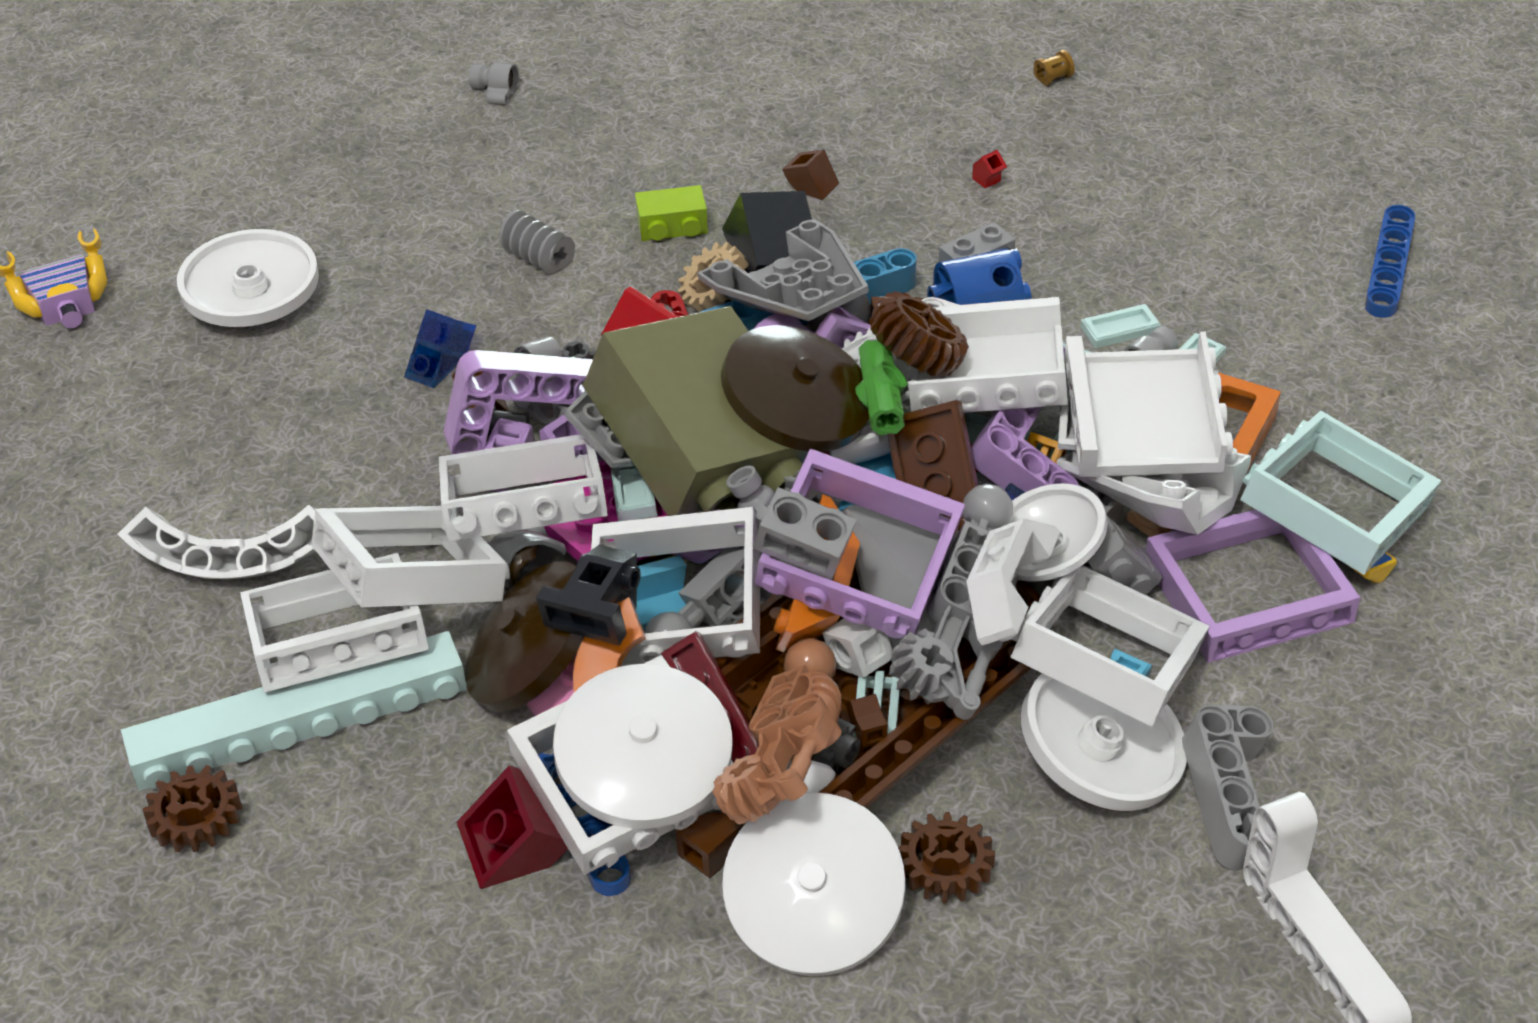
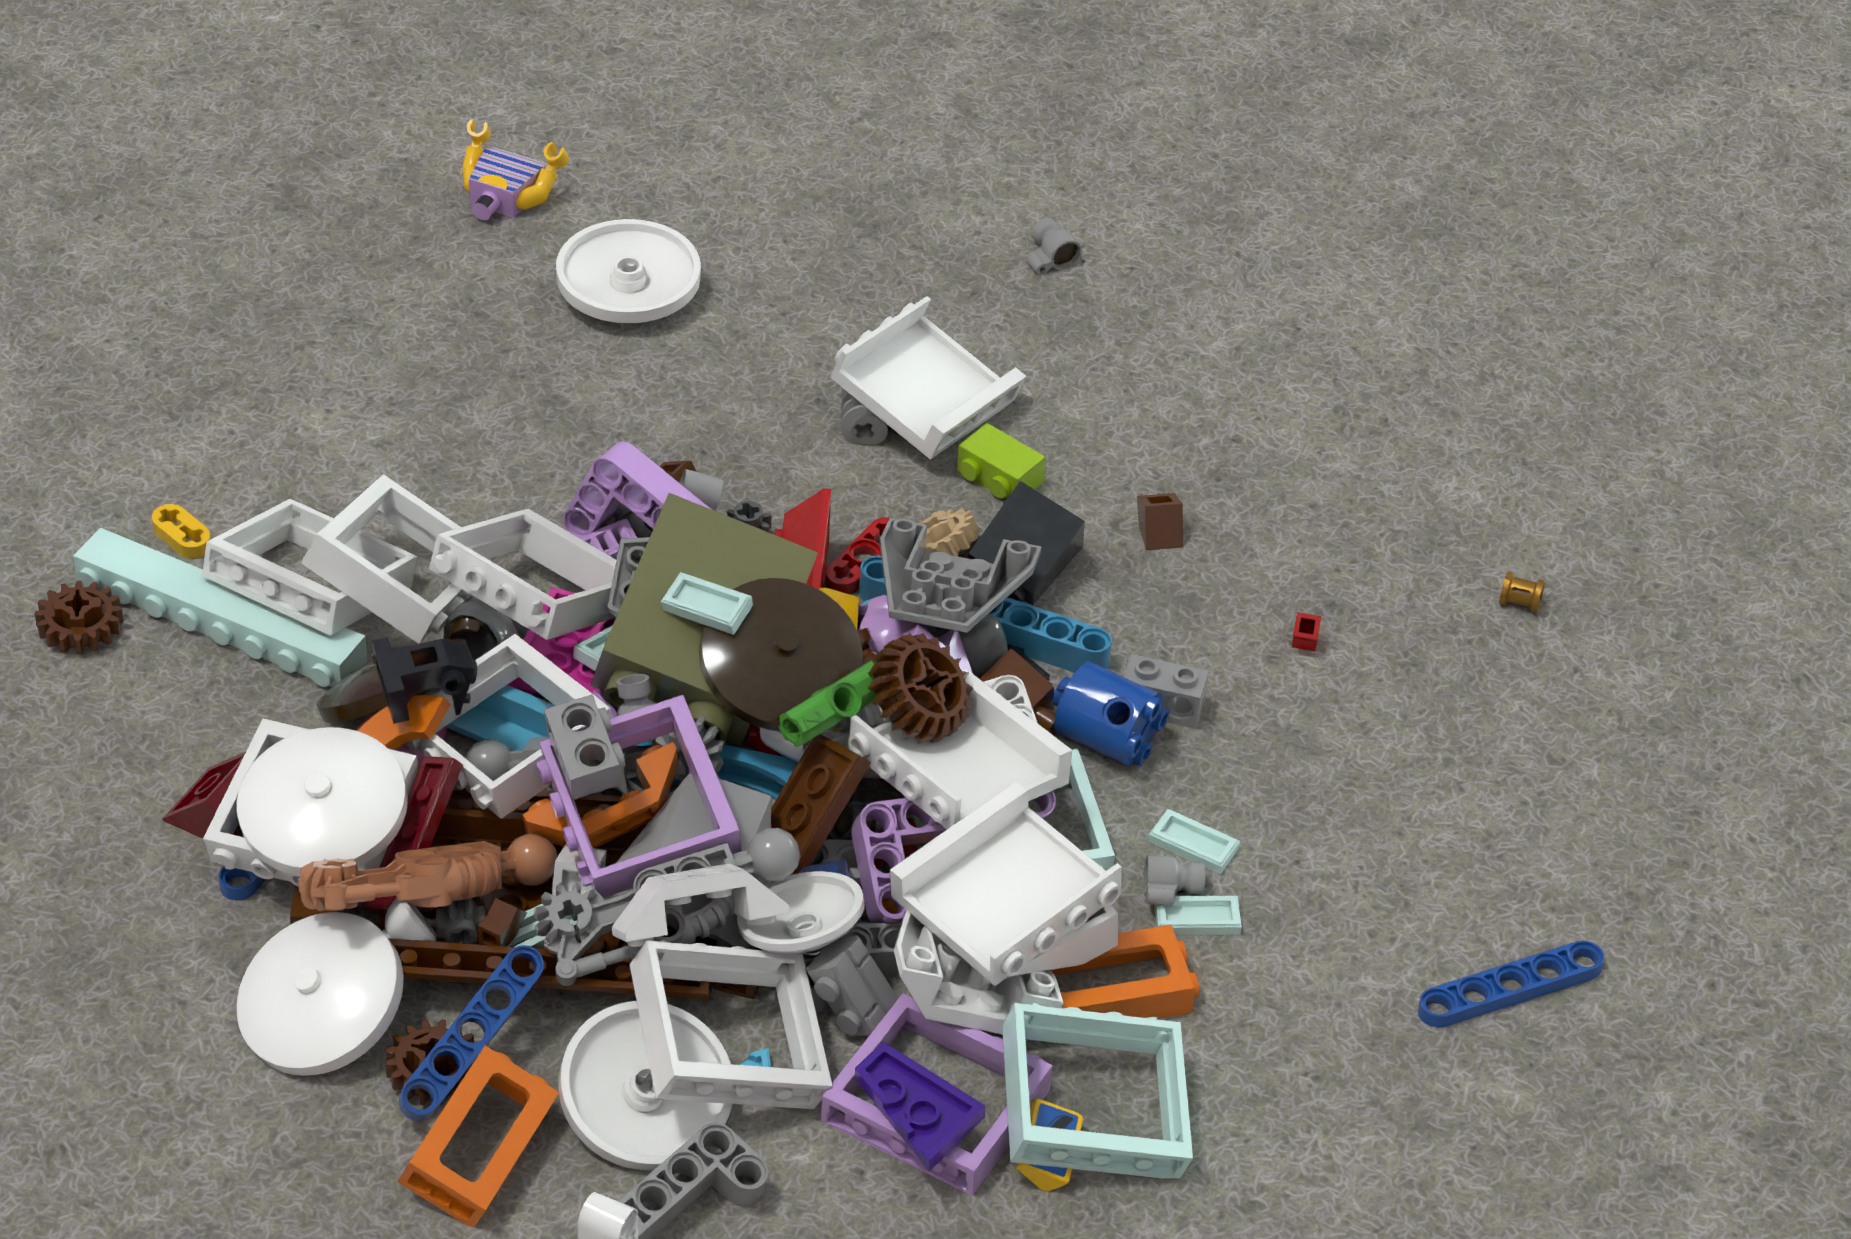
camera: 45 degrees right, 0 degrees up
(173, 687) = (176, 535): none -> yellow beam
(221, 558) = (310, 449): white brick -> none
(438, 348) = (678, 431): clear blue slope -> none
(562, 198) = (922, 380): none -> white panel
(726, 384) = (707, 603): none -> light aqua tile
(962, 822) = (462, 1051): none -> blue beam
(1048, 883) = (444, 1187): none -> orange piece
(1277, 585) = (918, 1103): none -> dark purple wing

